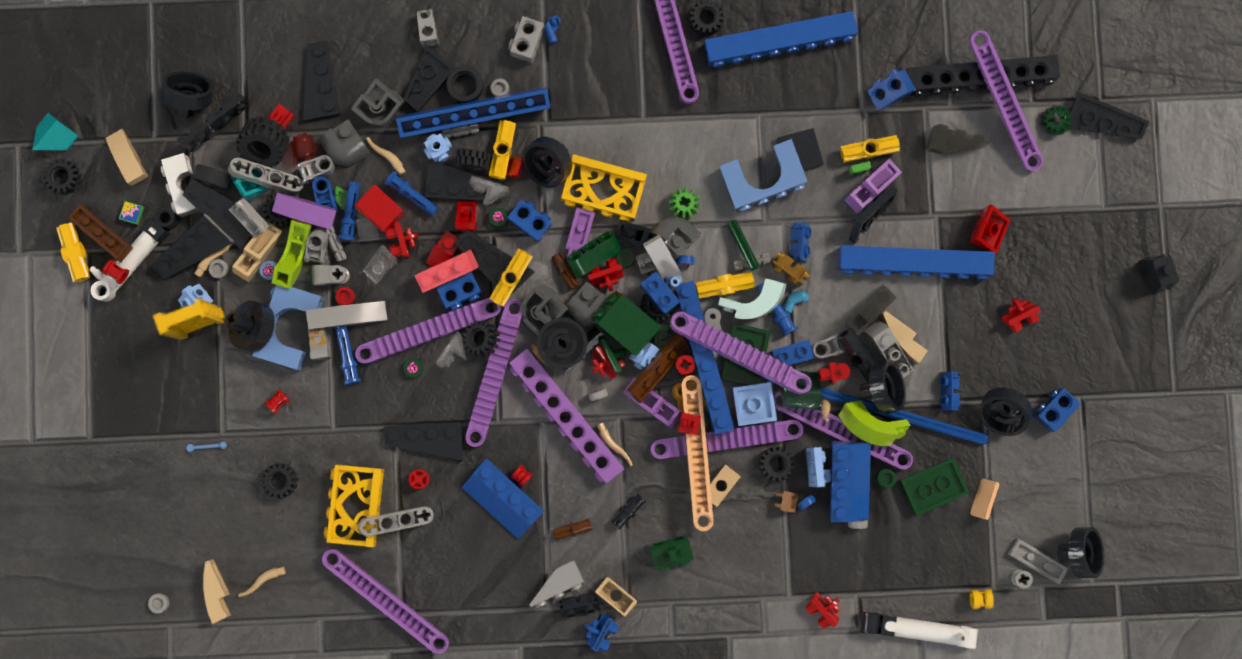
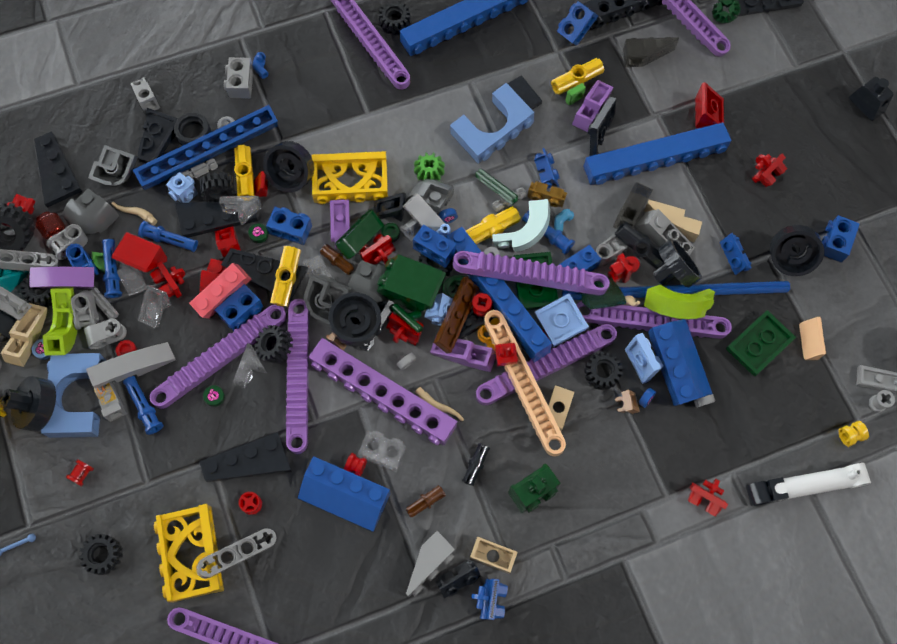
camera: 15 degrees left, 15 degrees down
(546, 475) = (379, 455): none -> clear brick
(886, 478) = (712, 351): dark green tile -> none

